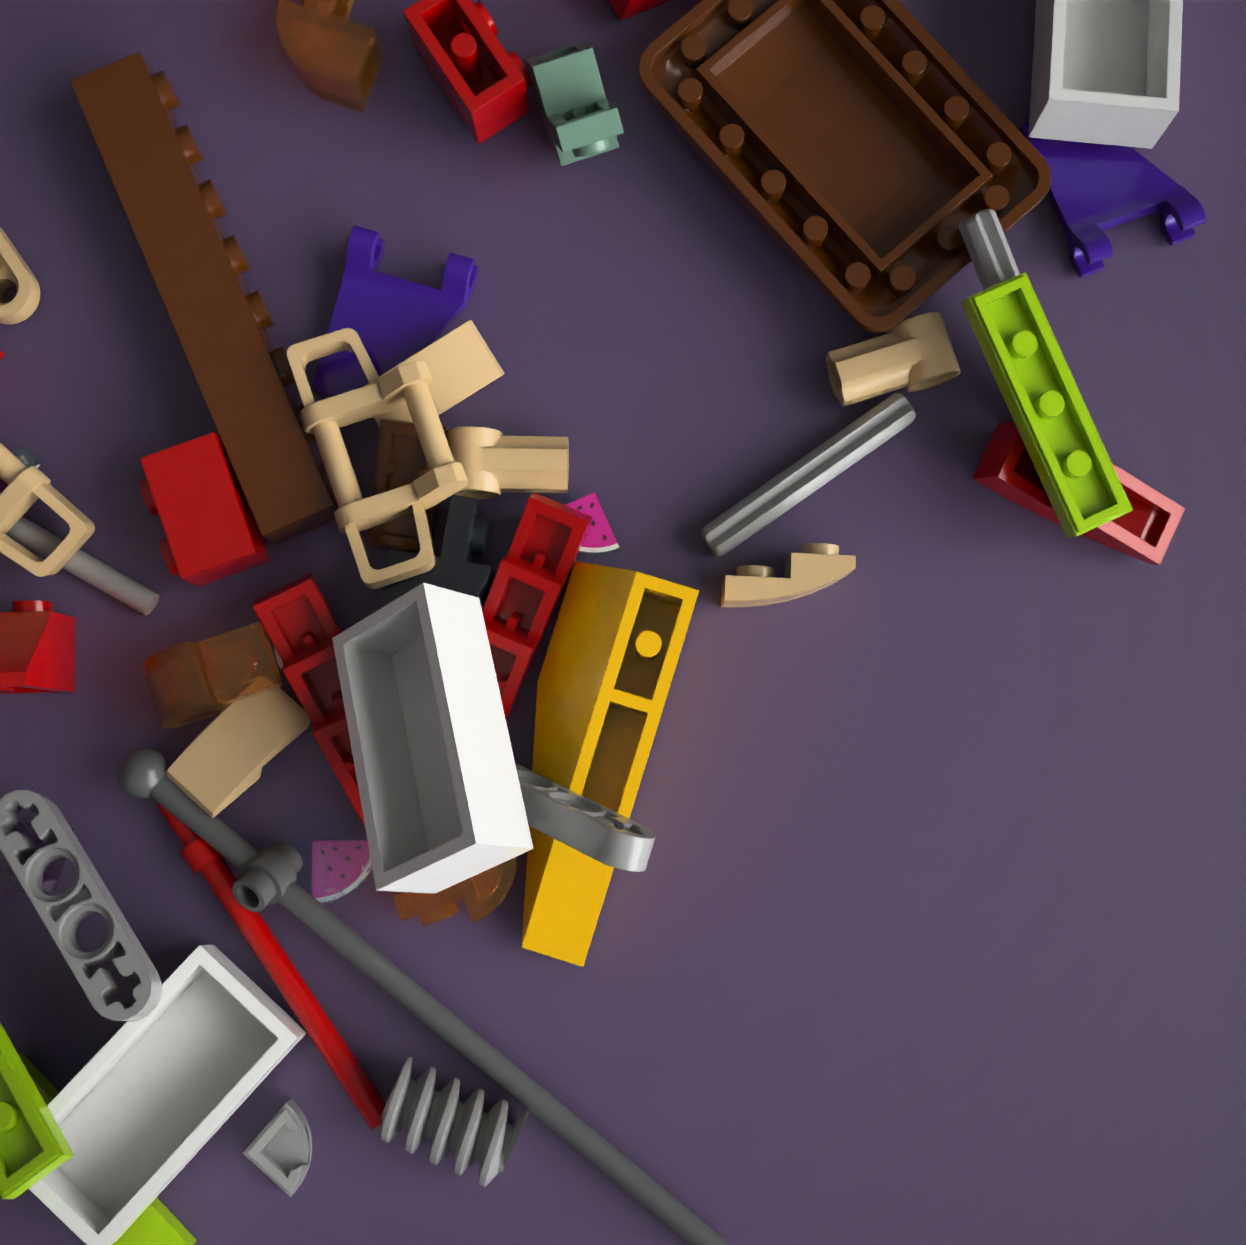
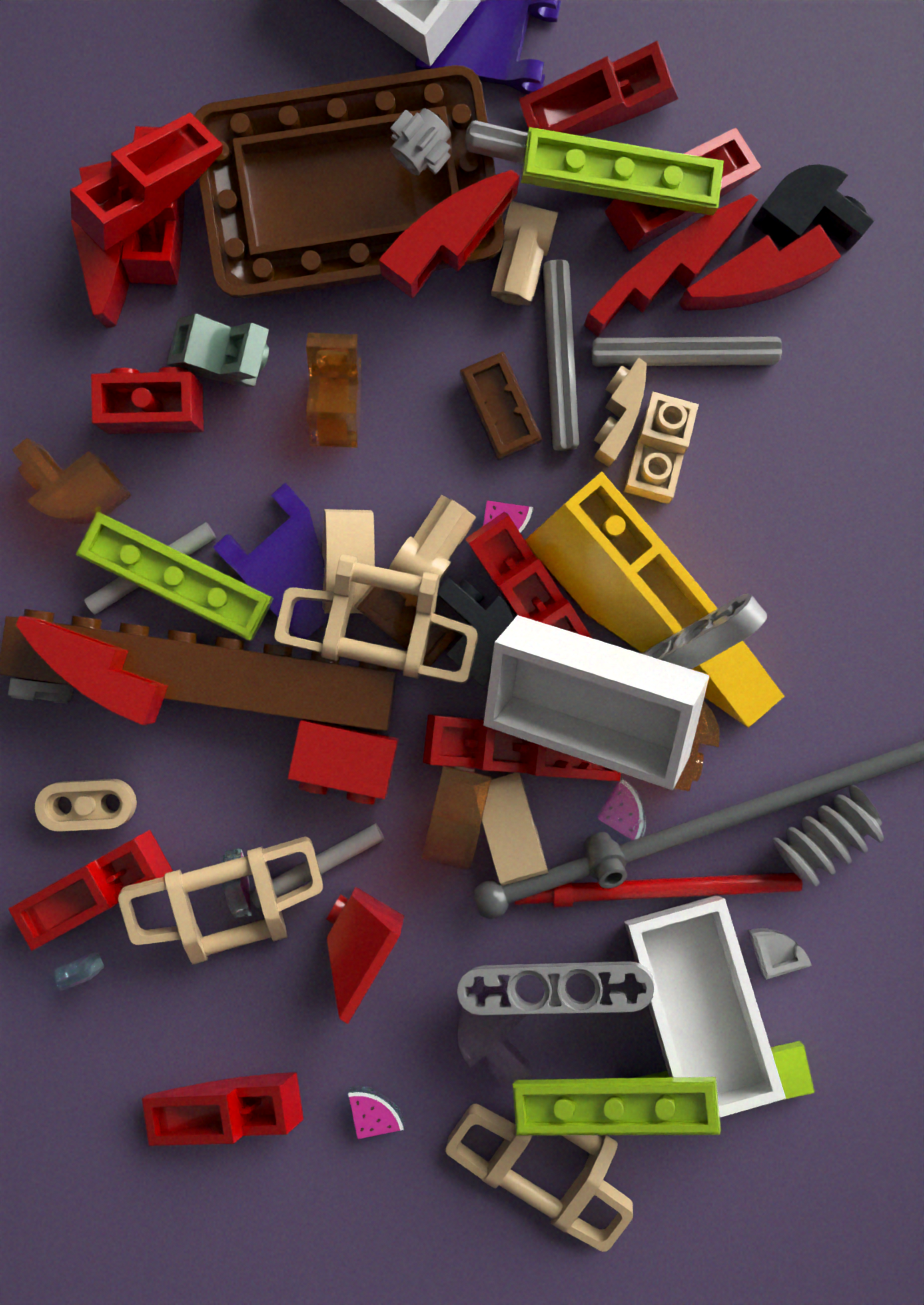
camera: 60 degrees left, 5 degrees up
(74, 123) = (29, 689): none -> light grey tile
(131, 175) = (95, 669): none -> red slope
(293, 178) = (121, 587): none -> light grey bar
(297, 207) = (174, 576): none -> lime tile
(610, 253) = (334, 390): none -> clear orange brick
(709, 442) = (500, 405): none -> reddish brown plate
(777, 649) = (661, 447): none -> tan slope
(856, 258) = (448, 232): none -> red slope
(903, 611) = (687, 351): none -> light grey axle
(932, 166) = (420, 141): none -> light grey gear
(1003, 535) = (678, 257): none -> red slope
(1043, 638) = (763, 273): none -> red slope
(1123, 340) = (602, 94): none -> red slope
(1162, 637) = (812, 197): none -> black brick

